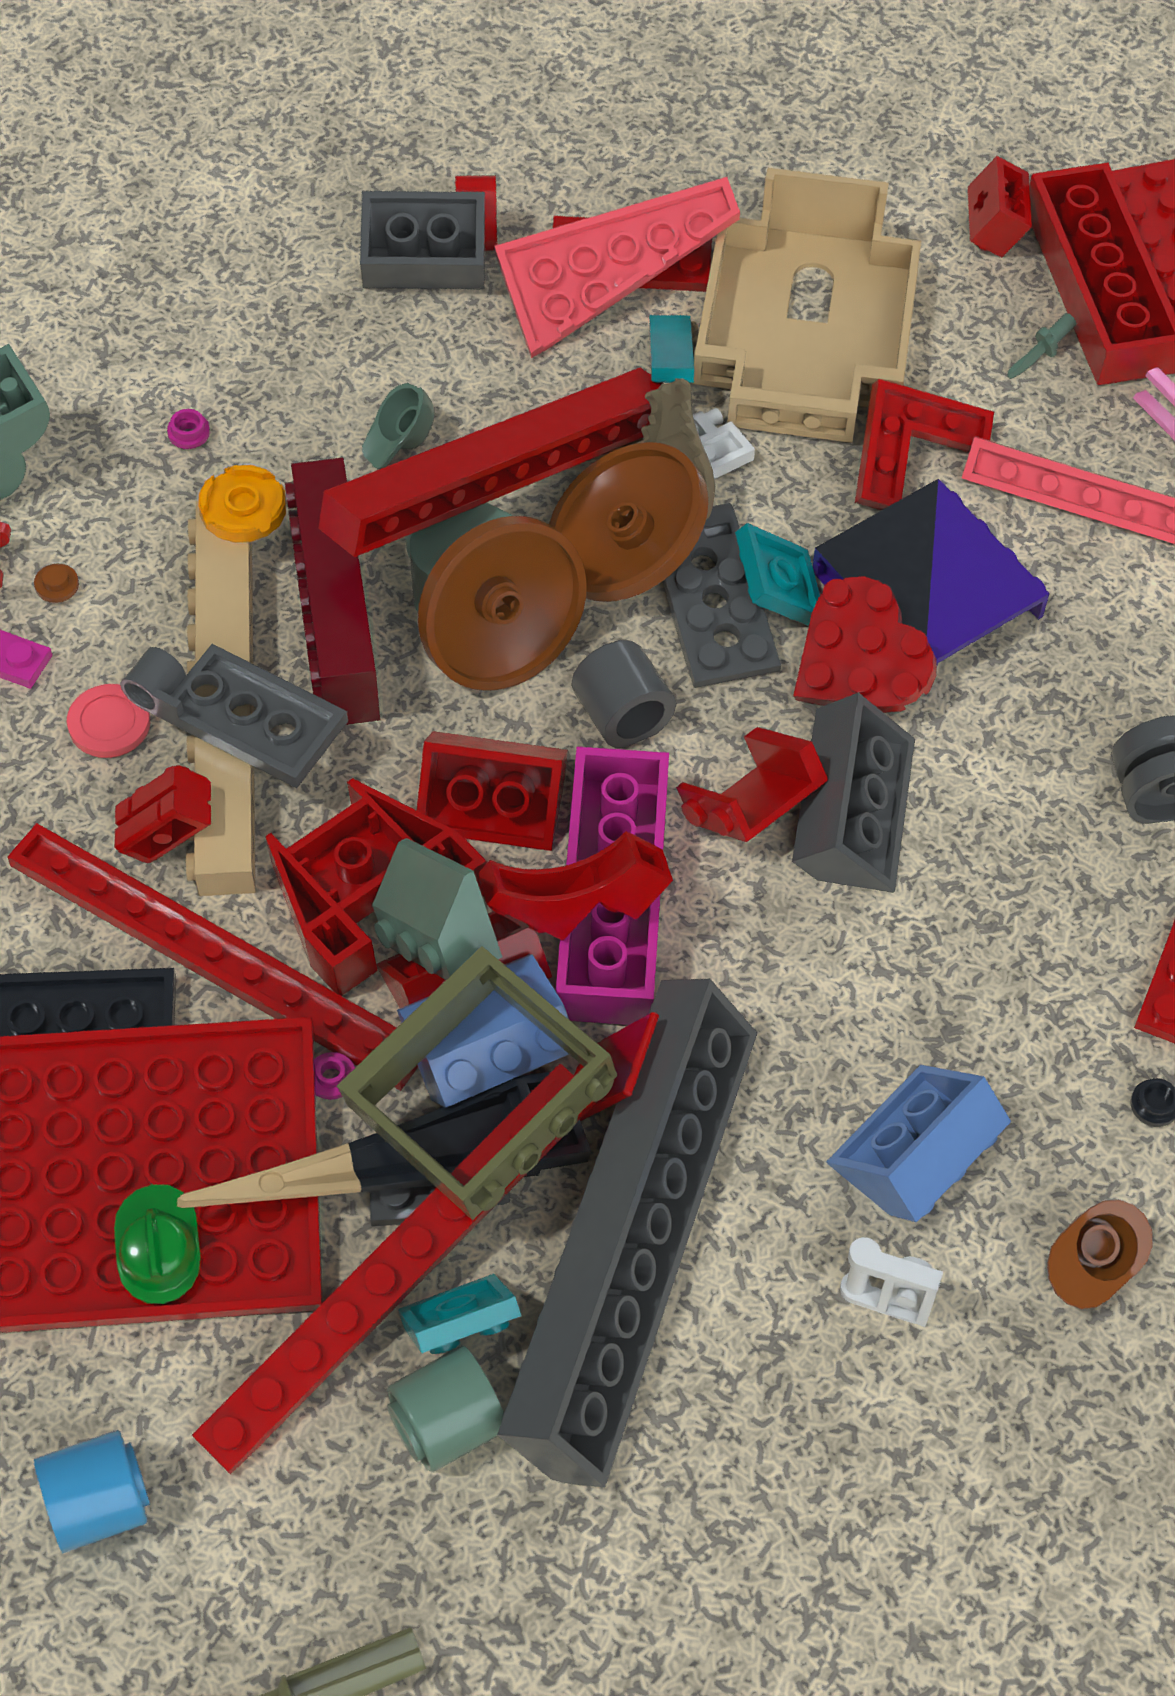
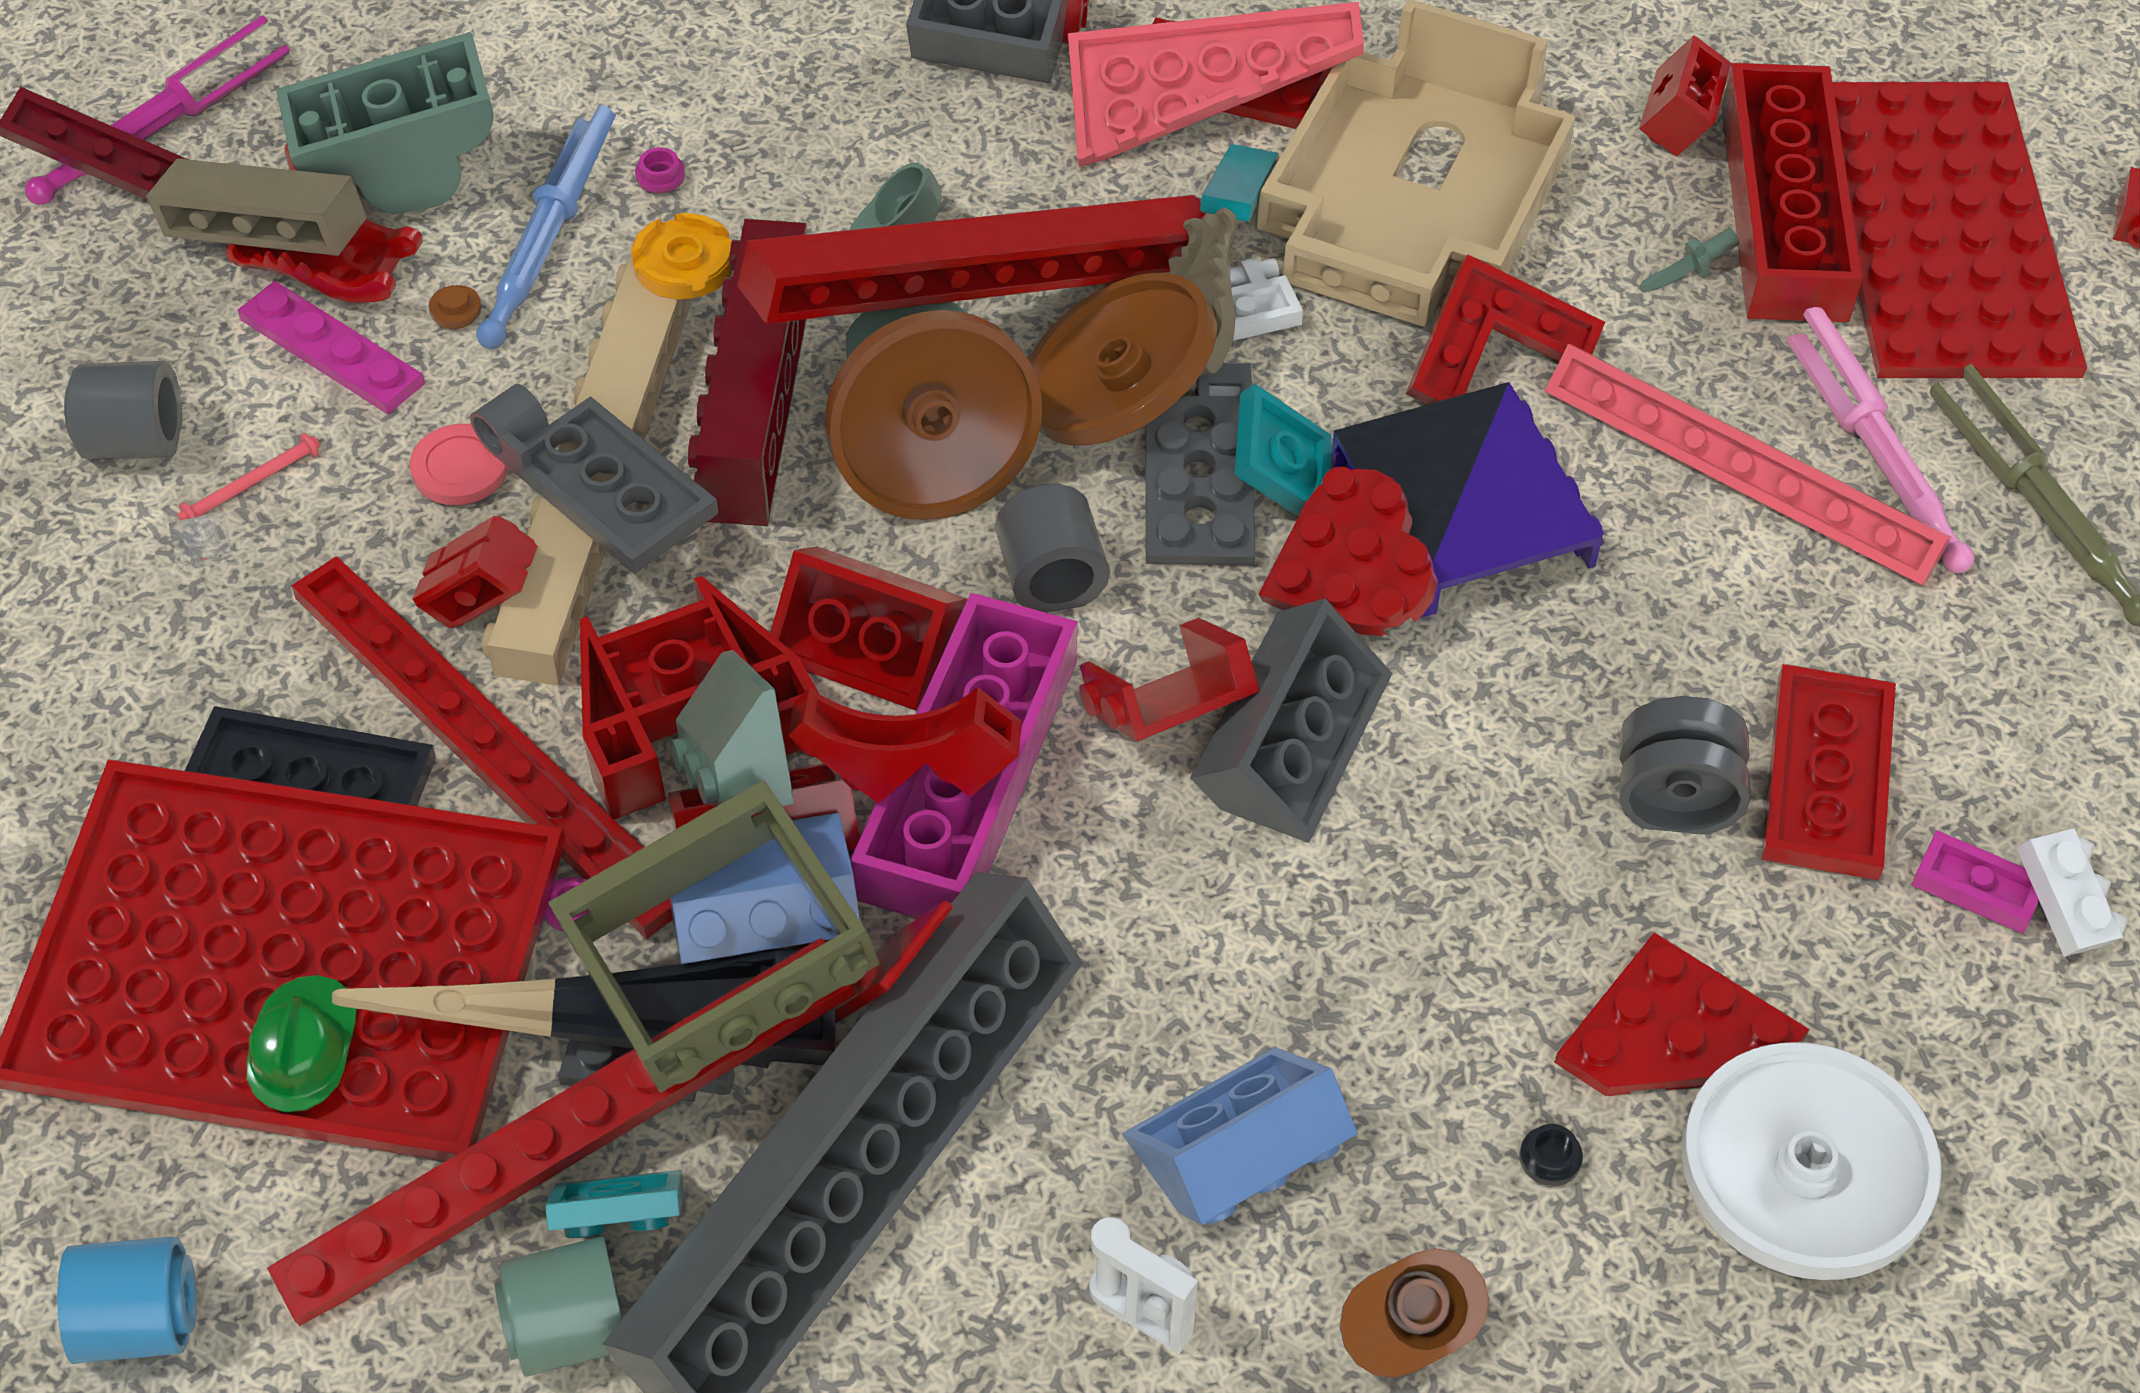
camera: 15 degrees right, 5 degrees down
(111, 473) = (554, 203): none -> medium blue piece

